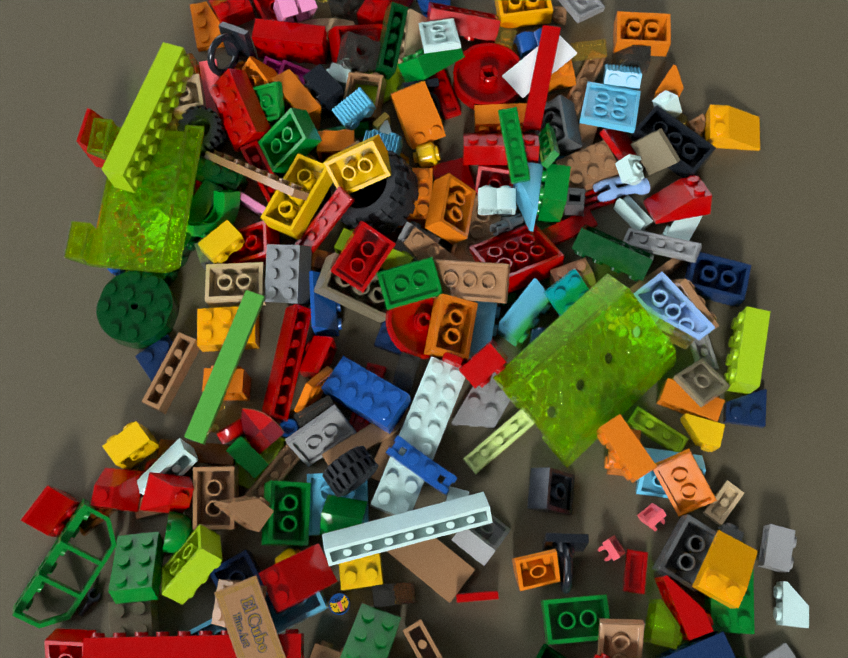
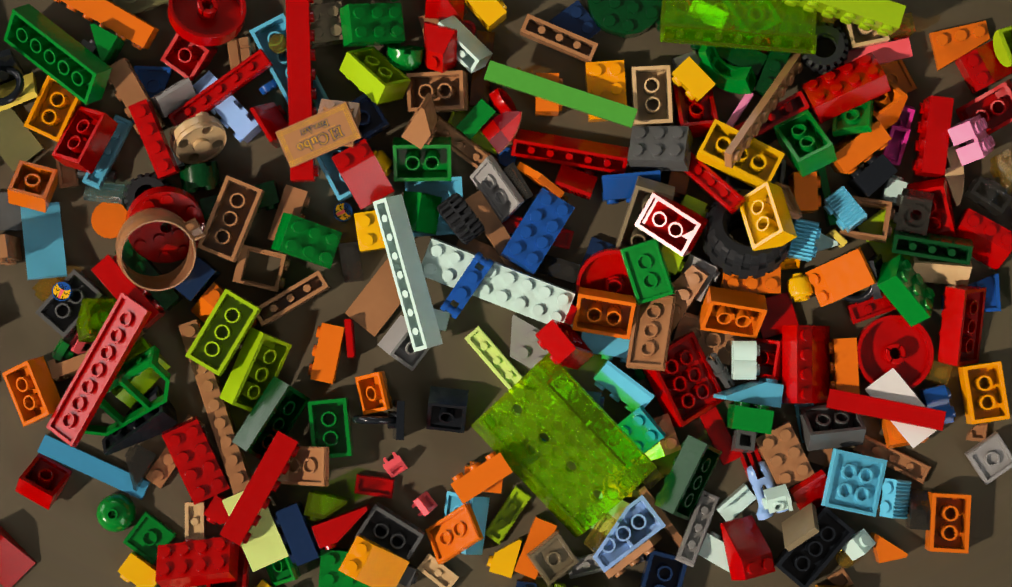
camera: 85 degrees right, 15 degrees up
(237, 45) = (927, 78): black tile -> none
(439, 35) = (929, 298): light aqua tile -> none
(493, 623) = (326, 353): none -> orange brick
(514, 145) = (796, 376): green tile -> none
(548, 146) = (799, 412): green tile -> none
(589, 50) = (928, 462): clear yellow panel -> none

